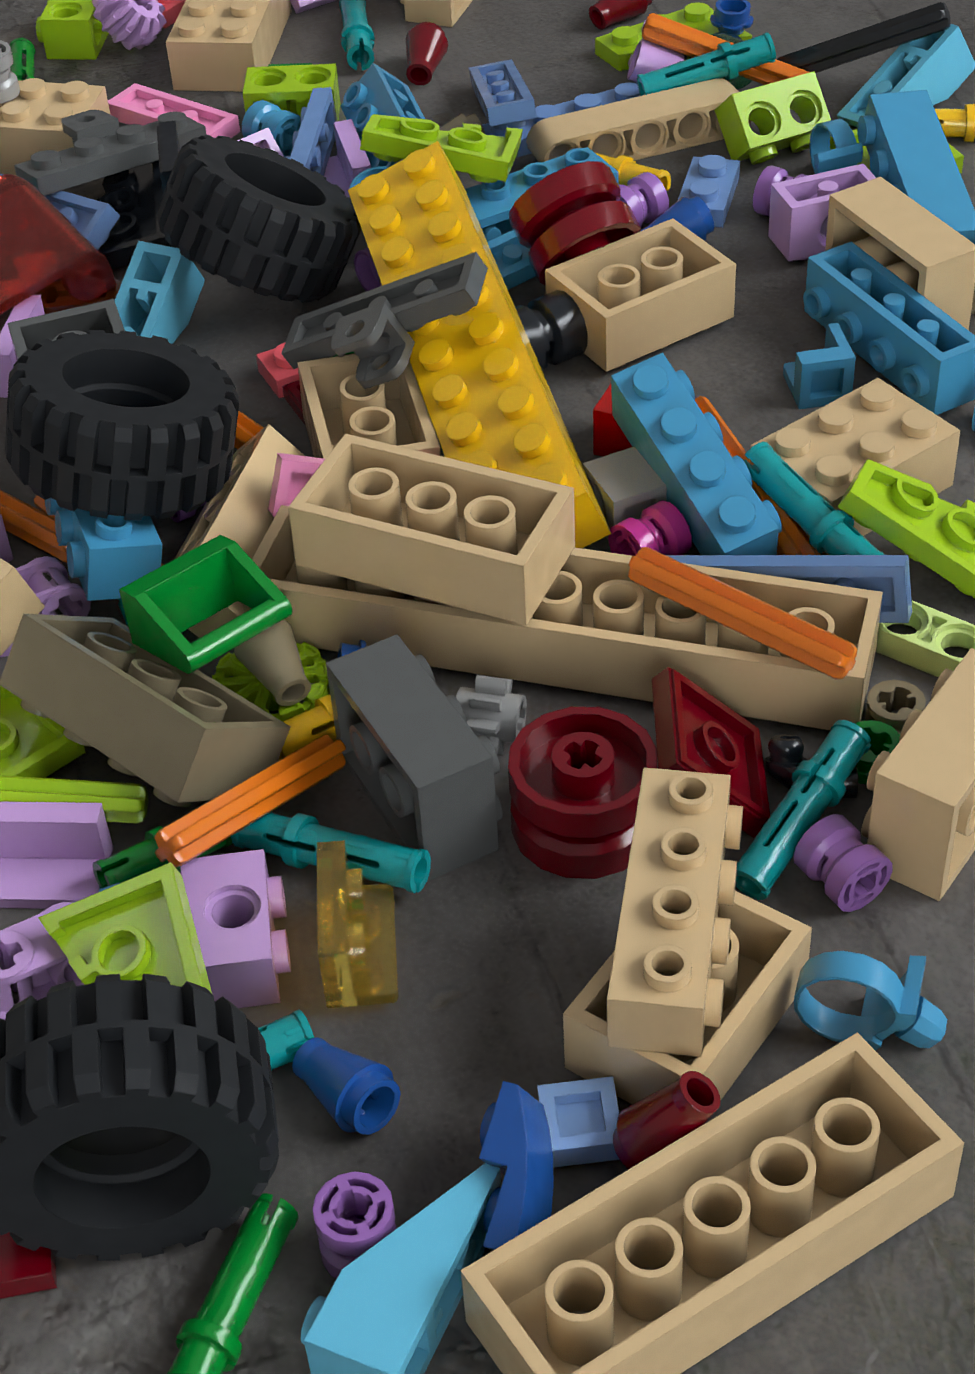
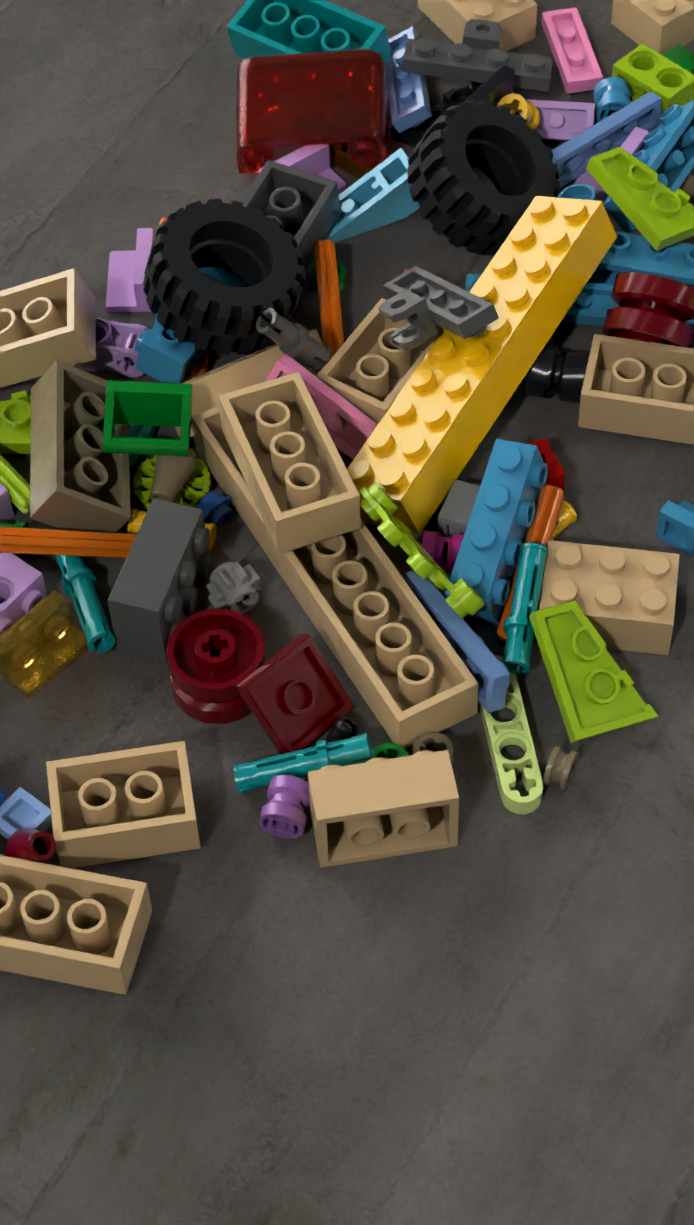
camera: 45 degrees right, 10 degrees up
(269, 430) = (293, 339): none -> dark grey pin
(656, 503) = (381, 506): none -> lime plant
(669, 914) = (134, 754): tan brick -> none
(743, 613) = (383, 635): orange axle -> none
(888, 1005) = (191, 882): dark azure piece -> none

